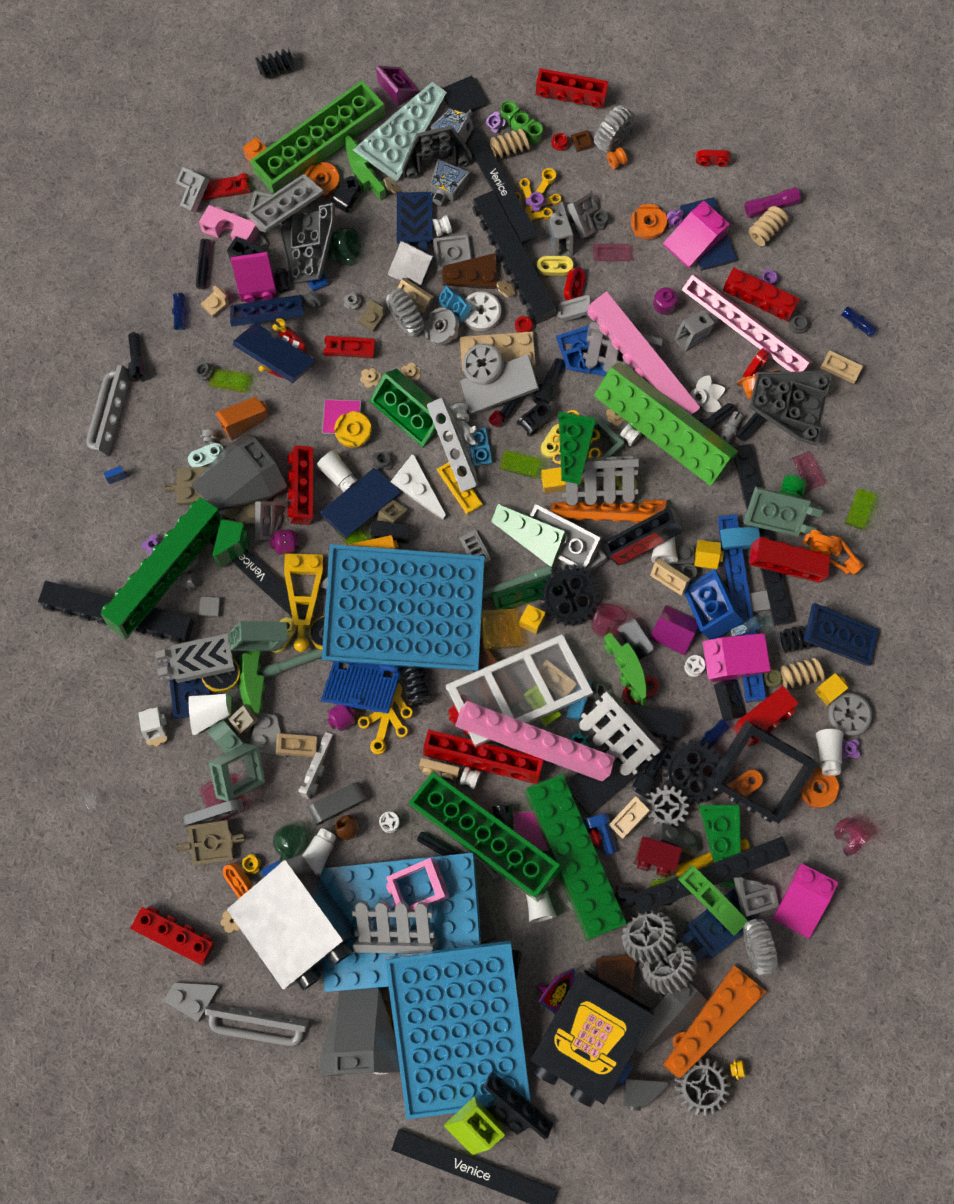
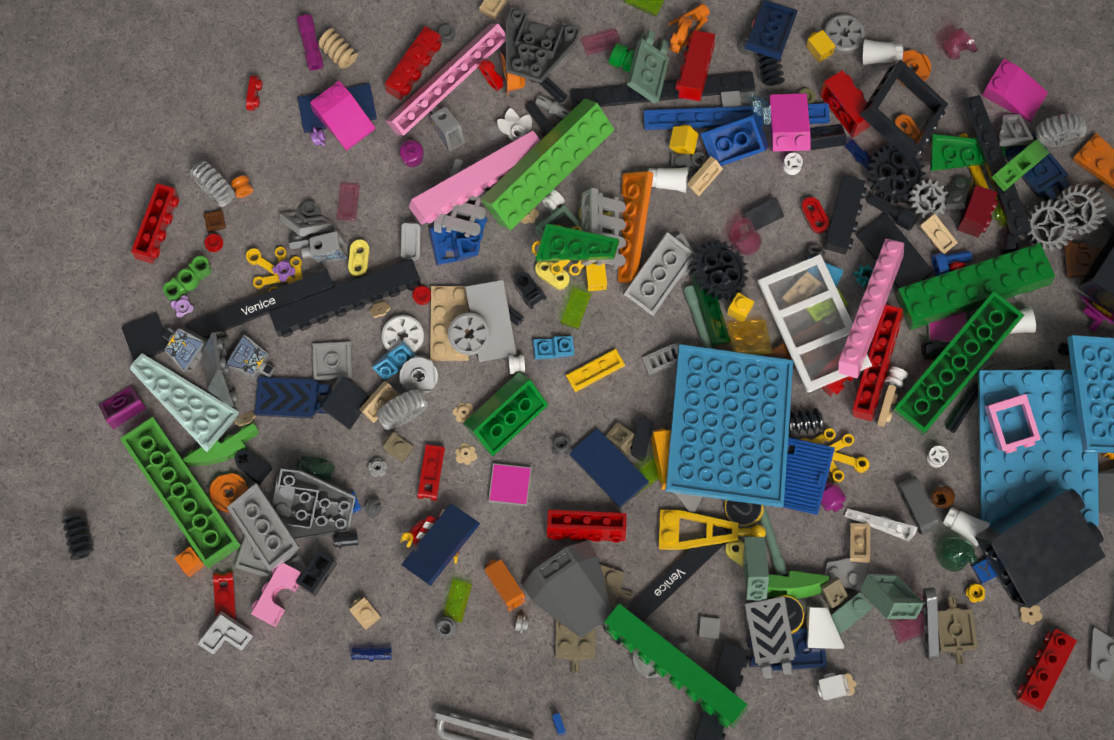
camera: 90 degrees left, 0 degrees up
(136, 365) = (435, 699): black piece -> none
(152, 540) = (633, 685): medium lavender plate -> none
(203, 260) = (316, 626): black axle -> none
(205, 455) = (542, 627): light aqua plate -> none
(230, 542) = (648, 597): green slope -> none
(237, 879) = (993, 604): orange plate -> none
(254, 277) = (349, 564): dark pink slope -> none
(266, 310) = (383, 555): dark blue tile -> none
(267, 518) = (620, 562): light grey wing -> none
(284, 541) = (645, 547): magenta head -> none
(336, 470) = (571, 490): white plant -> none
(352, 429) = (526, 472): yellow tile -> none
(393, 941) = (1062, 446): light grey fence -> none
(413, 483) = (588, 415): white wing -> none
(442, 226) = (301, 368): white wheel -> none
(464, 482) = (519, 374): piece -> none
(466, 432) = (537, 359): white piece -> none
(471, 273) = (360, 340): reddish brown wing -> none
(496, 418) = (520, 329): dark red hinge -> none
(508, 143) = (210, 292): tan piece -> none
(532, 533) = (651, 302): wing -> none
(546, 390) = (490, 274): black piece -> none
(574, 283) = (383, 240): red plate -> none
(630, 668) = (802, 216): bright green slope -> none
(630, 737) = (846, 227): fence -> none
(644, 536) = (667, 192): black brick -> none
(651, 212) = (321, 172): orange plate -> none
(674, 630) = (755, 178): magenta slope -> none
(739, 537) = (670, 108): dark azure slope -> none
(771, 275) = (394, 51): medium lavender plate -> none
(800, 672) = (803, 69): tan piece -> none
(854, 749) = (880, 34): medium lavender plate -> none

